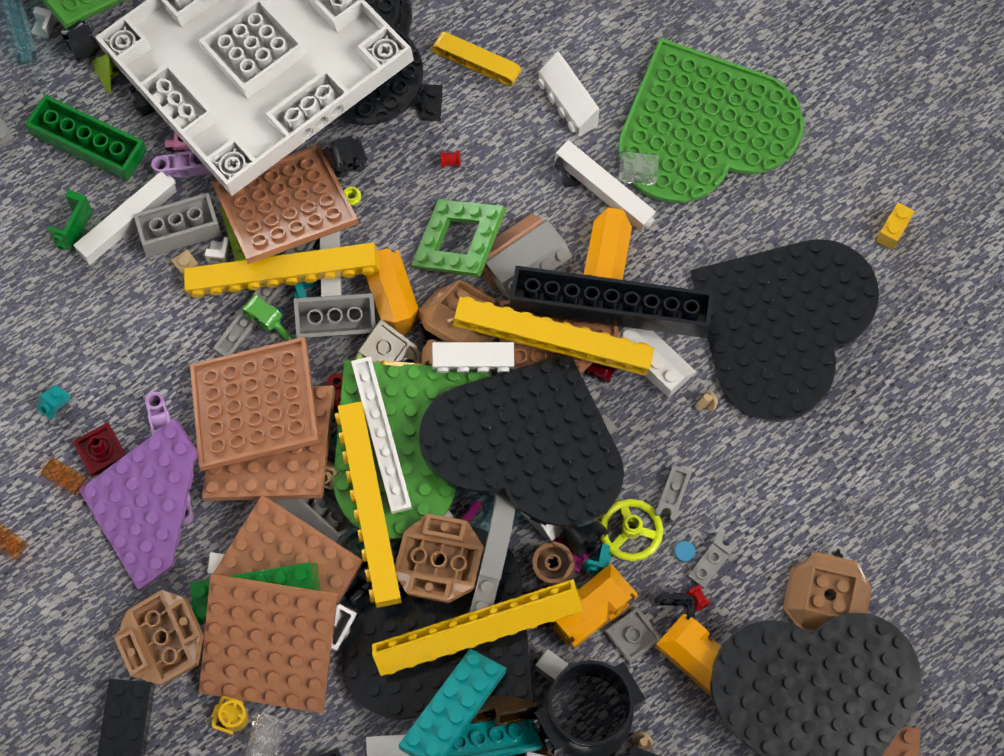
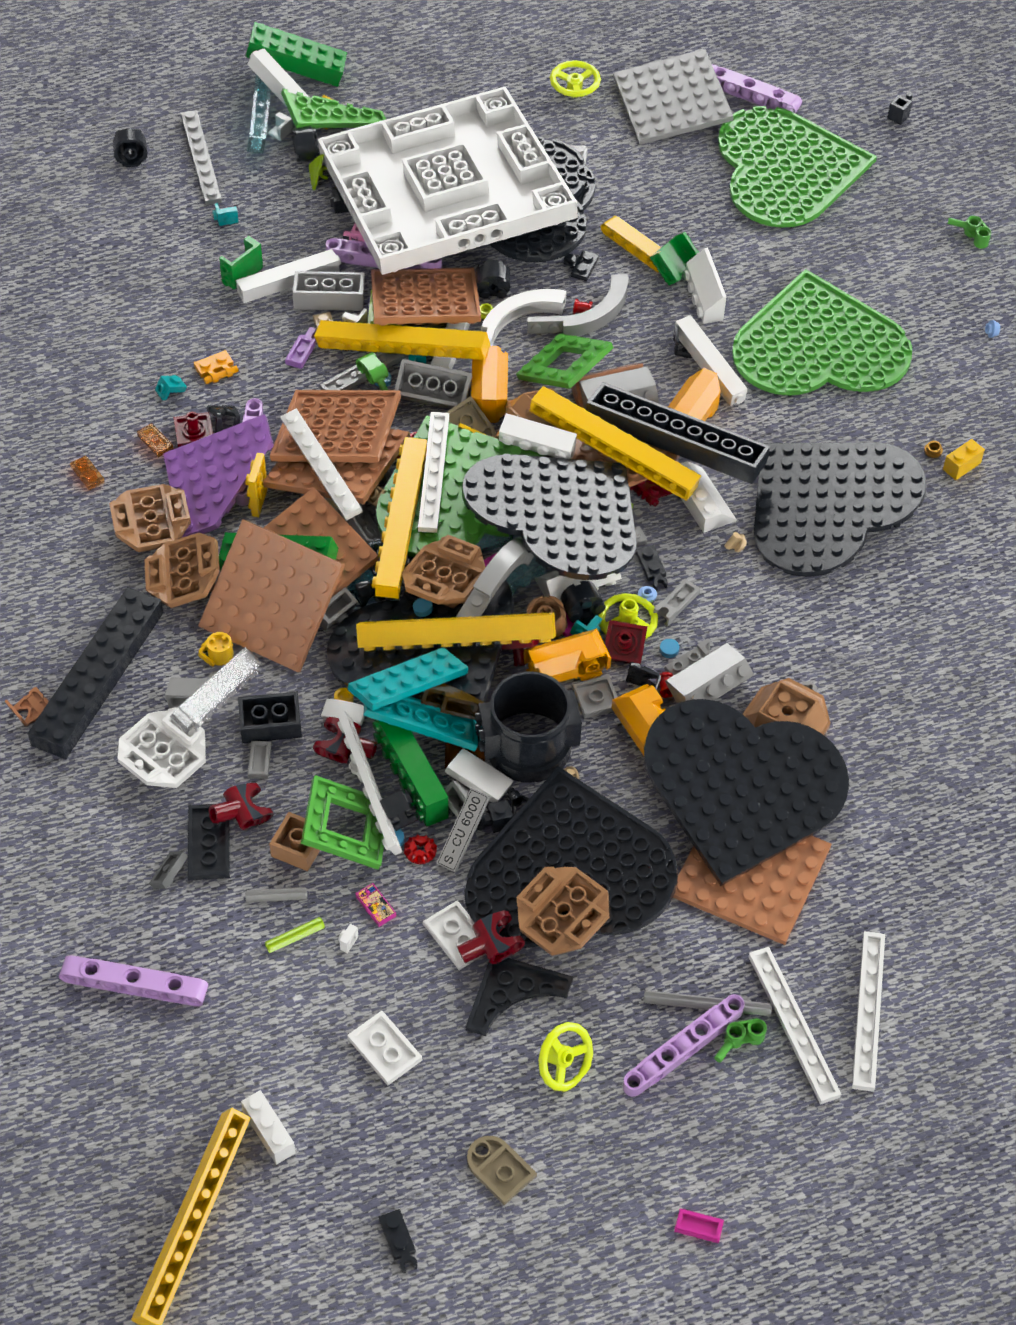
camera: 20 degrees right, 15 degrees down
(28, 160) = (225, 215): none -> teal bracket
(84, 566) = (150, 516): none -> medium nougat piece
(86, 137) = (280, 211): green brick -> none
(88, 356) = (213, 364): none -> light orange plate
(119, 418) = (219, 411): none -> black piece
(176, 307) = (301, 349): none -> medium lavender hinge
(198, 509) = (256, 489): none -> yellow plate
(260, 465) = (321, 464): none -> white plate
(381, 726) = (344, 695): none -> yellow tile
(390, 172) = (520, 305): none -> white arch
(427, 605) = (422, 607): none -> dark azure tile
(465, 172) = (589, 320): none -> arch
(524, 67) = (673, 256): none -> green panel
(634, 457) = (652, 565): none -> black plate
(638, 168) = (745, 352): clear brick -> none
(641, 563) = (625, 641): none -> dark red plate
(644, 489) = (647, 589): none -> light blue plate
(740, 581) = (710, 675): none -> slope
(864, 218) = (933, 449): none -> pearl gold plate
(869, 53) = (992, 328): none -> light blue plate

